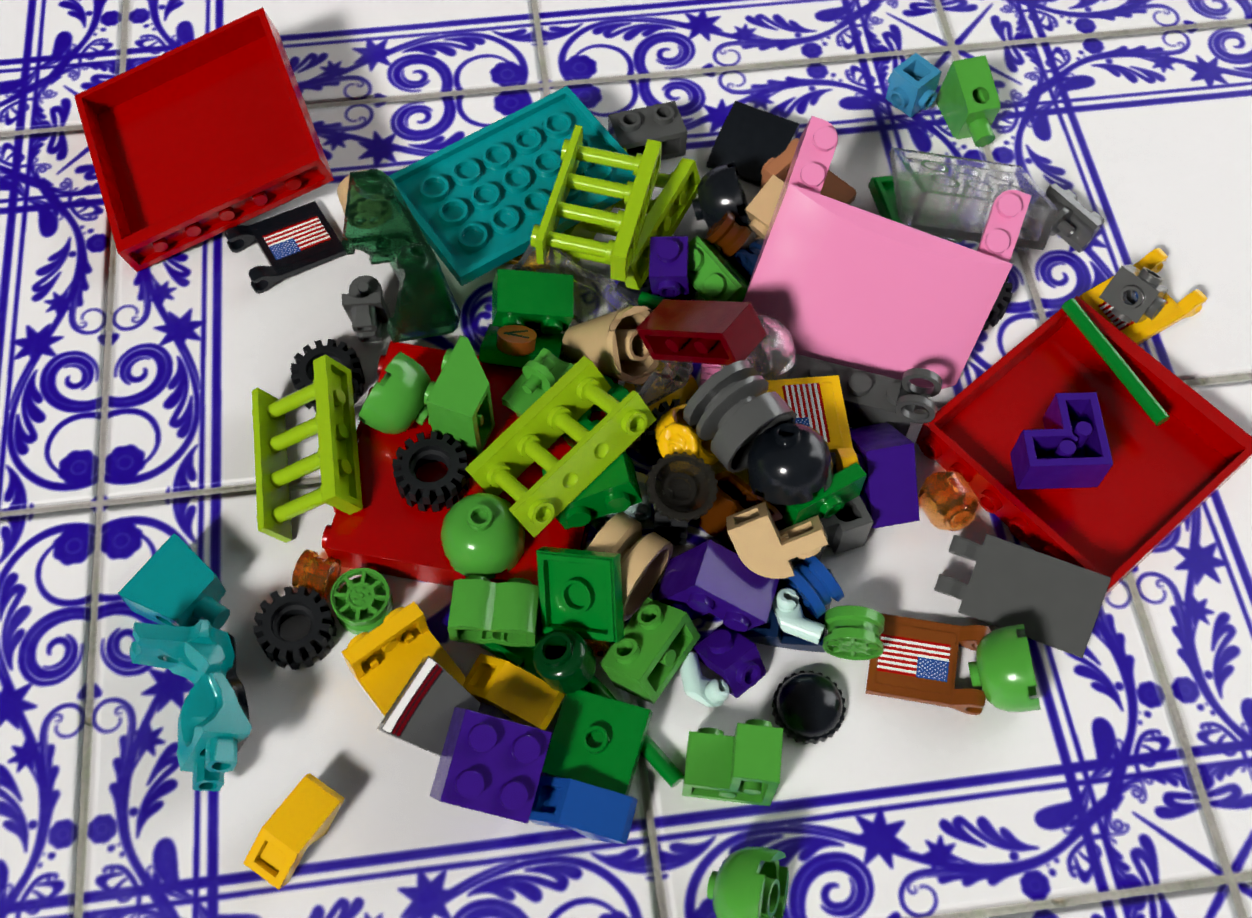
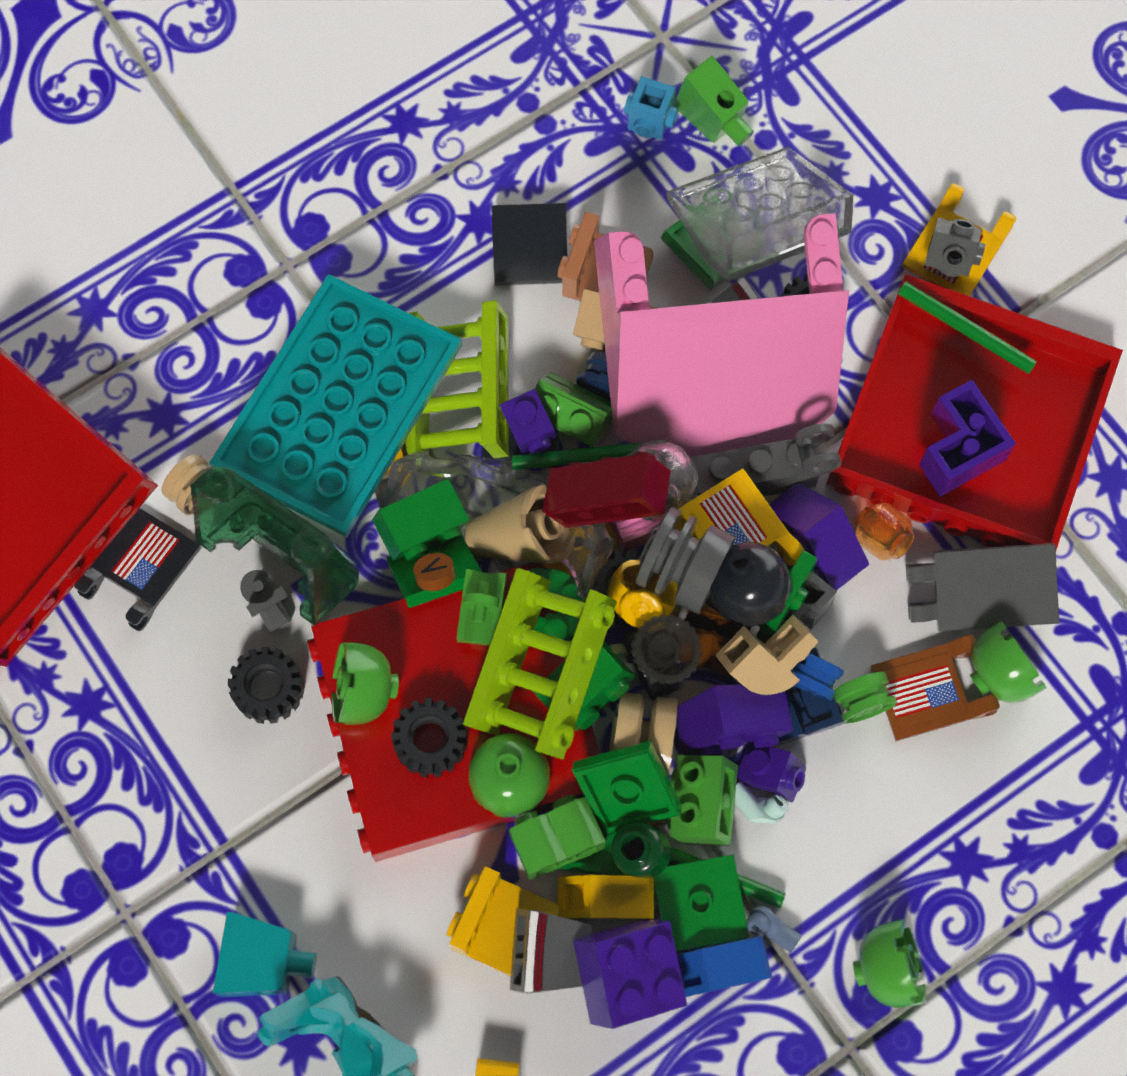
camera: 25 degrees left, 10 degrees up
(282, 608) = (365, 919): black tyre -> none
(316, 573) = (373, 879): clear orange wheel -> none
(335, 457) = (332, 764): lime fence -> none
(361, 601) = (428, 883): bright green wheel -> none
(461, 399) = (426, 661): bright green slope -> none
(625, 223) = (472, 404): lime fence -> none
(648, 789) = (765, 922): none -> sand blue arm
(654, 122) = (424, 278): dark grey brick -> none
(721, 193) = (538, 326): black cylinder -> none
(728, 234) = (564, 361): reddish brown wheel -> none
(736, 766) = (829, 865): bright green brick -> none
(792, 619) = (809, 712): light aqua arm -> none
(808, 707) = (855, 779): black hat -> none
(1073, 221) = (869, 190): dark grey hips -> none

